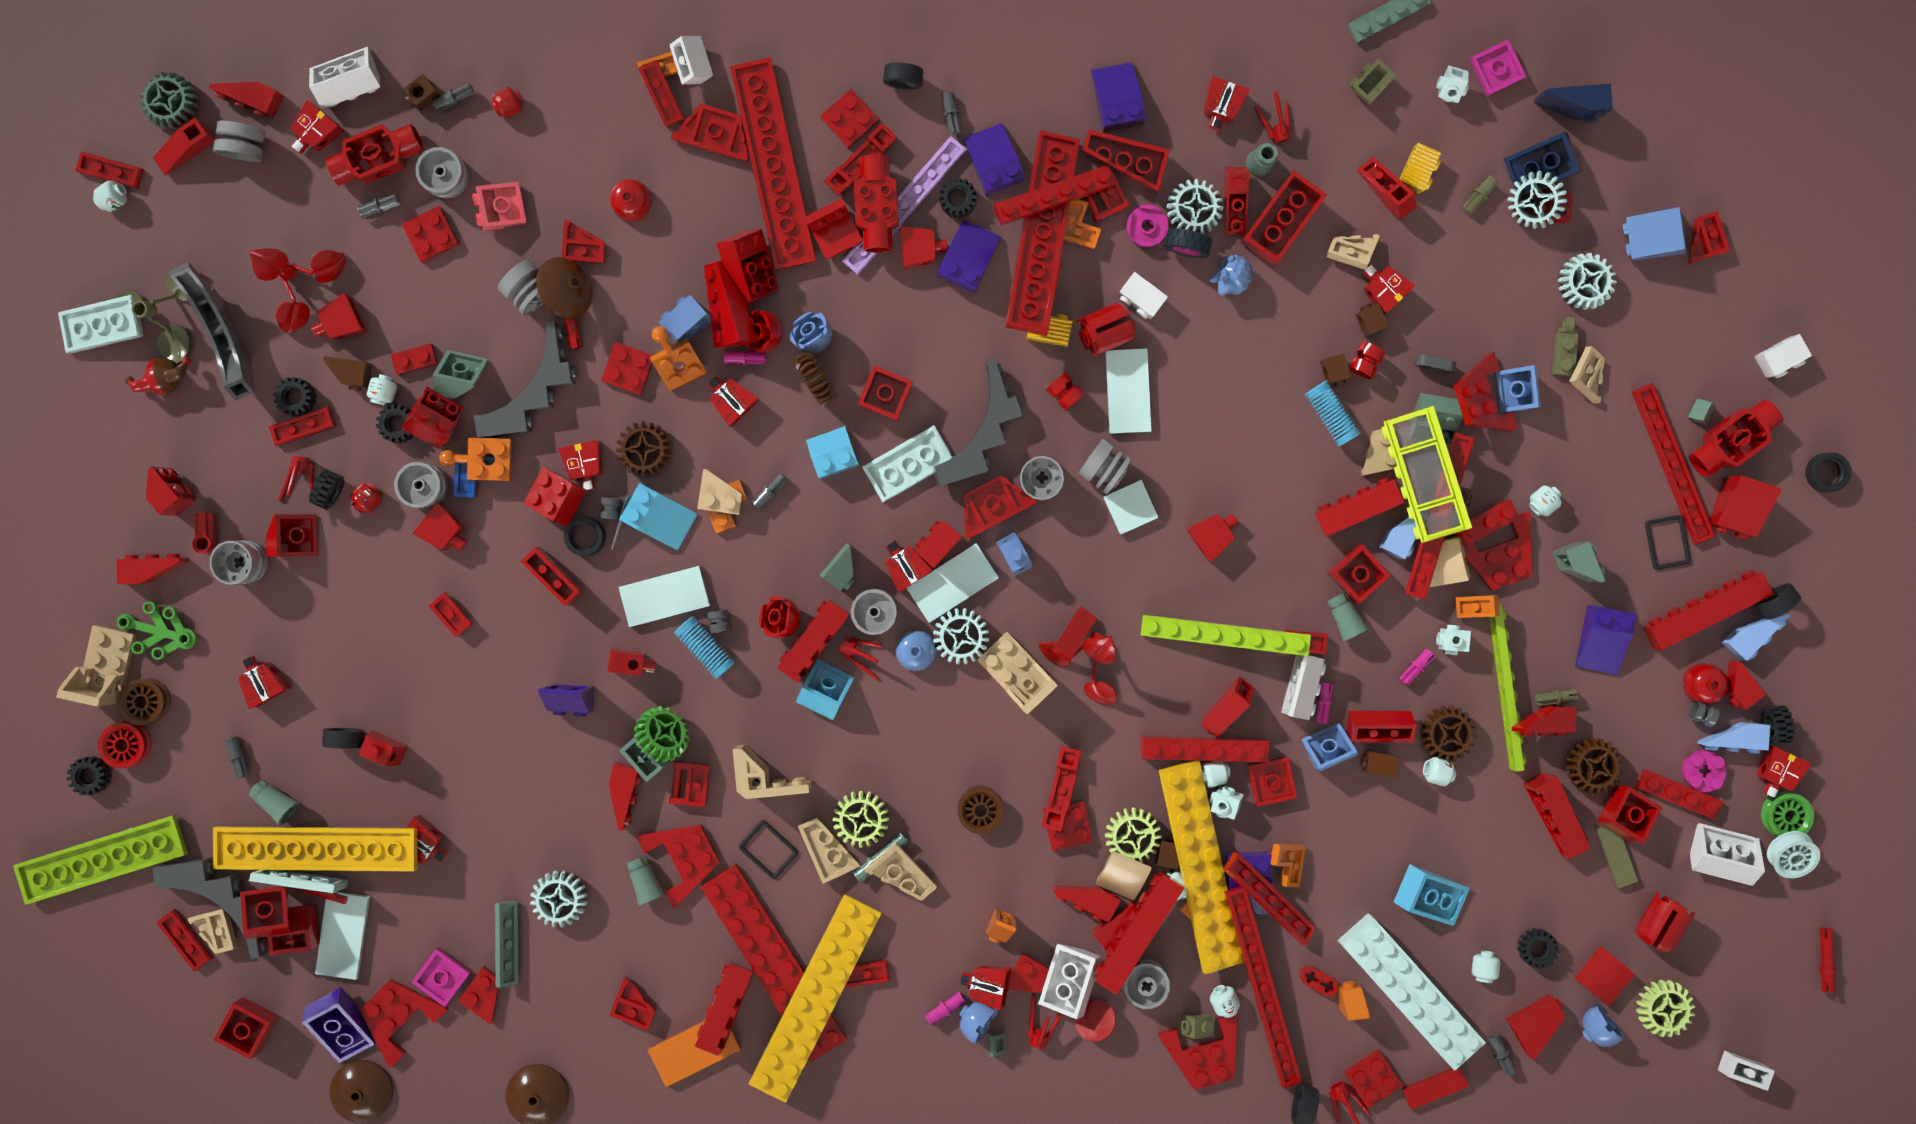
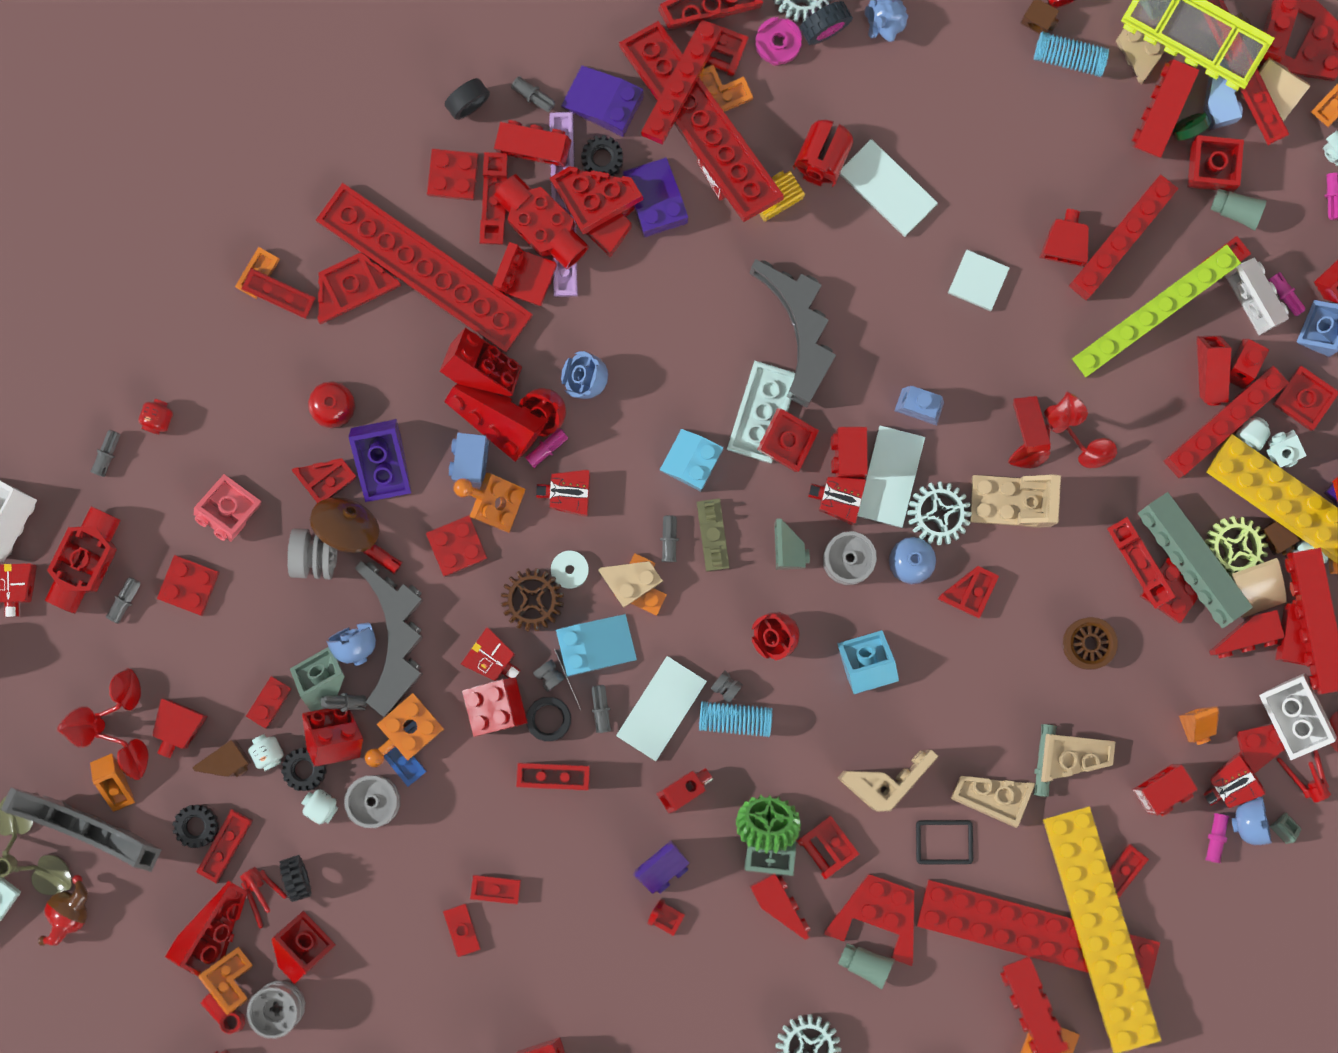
camera: 45 degrees left, 5 degrees down
(167, 492) = (161, 1006): red slope -> none
(221, 509) = (221, 979): none -> orange plate
(234, 476) = (209, 933): none -> red wedge
(263, 318) = (111, 782): none -> orange slope
(366, 498) = (334, 856): red head -> none
(385, 457) = (319, 806): none -> light aqua head
(406, 620) = (461, 930): none -> red plate
(418, 84) = (68, 466): reddish brown brick -> none
(441, 528) = (422, 823): red torso -> none
(442, 173) = (140, 522): light grey wheel -> none
(460, 404) = (344, 702): none -> dark grey axle
(500, 372) = (353, 644): none -> medium blue cylinder
(544, 732) = (665, 917): none -> red tile
(624, 561) = (601, 709): none -> dark grey axle
(628, 265) = (380, 460): none -> dark purple slope
(691, 60) = (279, 243): white brick -> none
(697, 451) = (580, 572): none -> light aqua piece
(801, 514) = (713, 535): none -> olive plate
(813, 640) = (821, 628): red wedge -> none
(814, 378) = (622, 409): reddish brown gear -> none
(850, 648) = (857, 608): red plant -> none
(851, 816) = (1003, 753): yellowish green gear -> none
(885, 393) = (692, 369): red brick -> none
(906, 497) = (788, 440): none -> red plate
(920, 146) = (533, 143): none -> red brick
(926, 218) = (594, 195): none -> red plate
(934, 705) = (971, 591): none -> red wing
(938, 948) = (1165, 790): none -> red brick
(993, 504) = (863, 381): red wing -> none
(1033, 486) = (897, 314): light grey wheel -> none
(1065, 391) = (837, 233): red wheel -> none
(1097, 819) = (1194, 560): none -> sand green brick
(1105, 466) = (928, 264): light grey wheel -> none
(1142, 296) = (827, 100): white brick -> none
(1251, 566) = (1123, 237): none -> red brick
(1254, 723) = (1247, 361): none -> red torso
(1365, 534) = (1191, 126): none -> dark green piece

